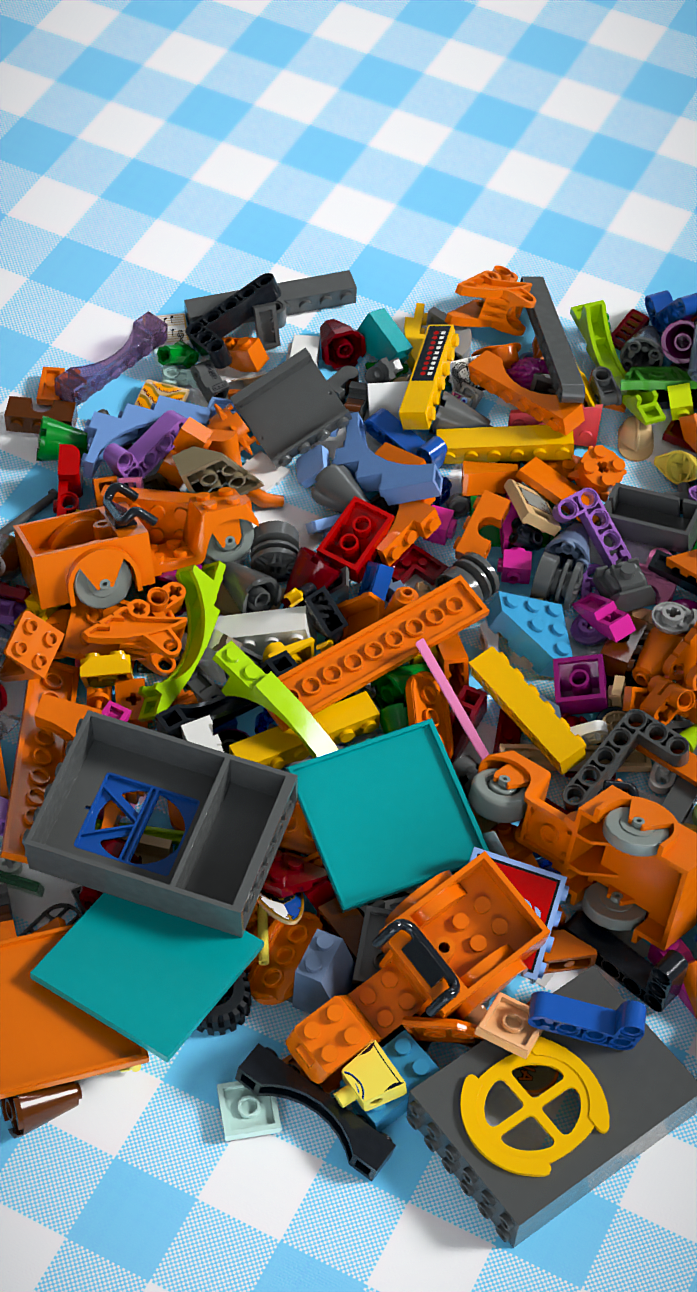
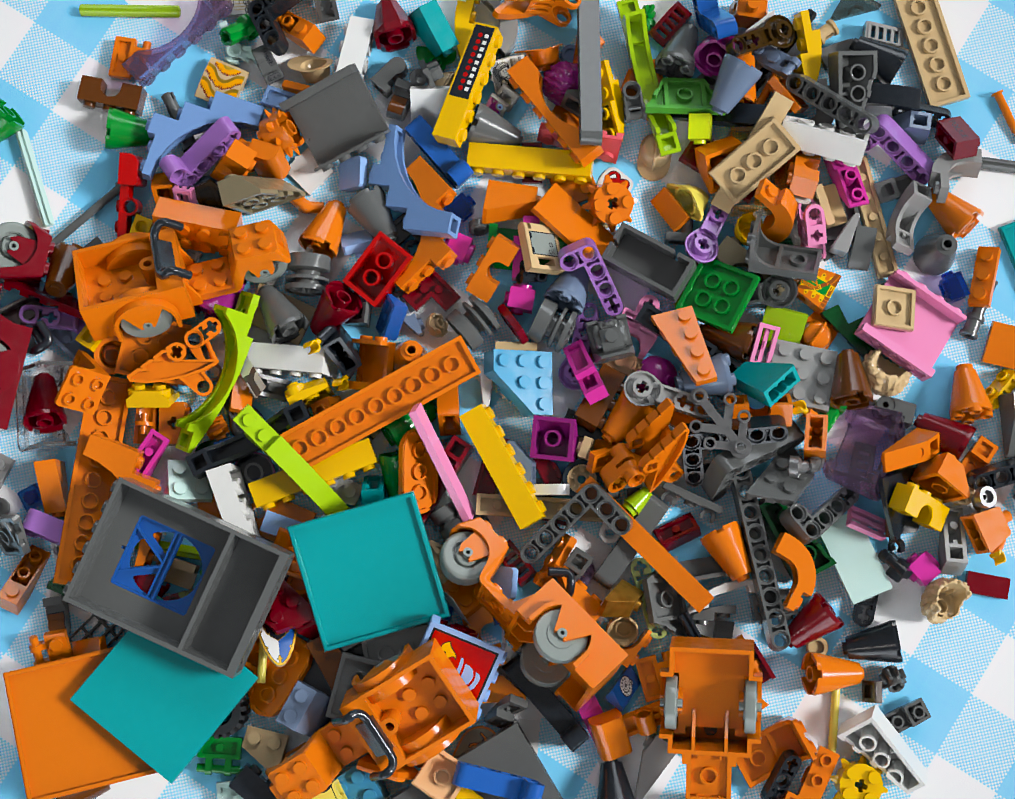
camera: 10 degrees right, 30 degrees up
(55, 349) = (123, 10): none -> lime axle
(209, 672) = (239, 395): none -> orange tile
(213, 1046) = (222, 748): none -> green plate
(271, 1034) = (265, 745): none -> tan wing
(291, 508) = (325, 230): none -> orange cone
(513, 582) = (513, 324): none -> dark red tile
(575, 962) = (503, 712): none -> dark grey slope
(663, 476) = (670, 209): none -> orange tile

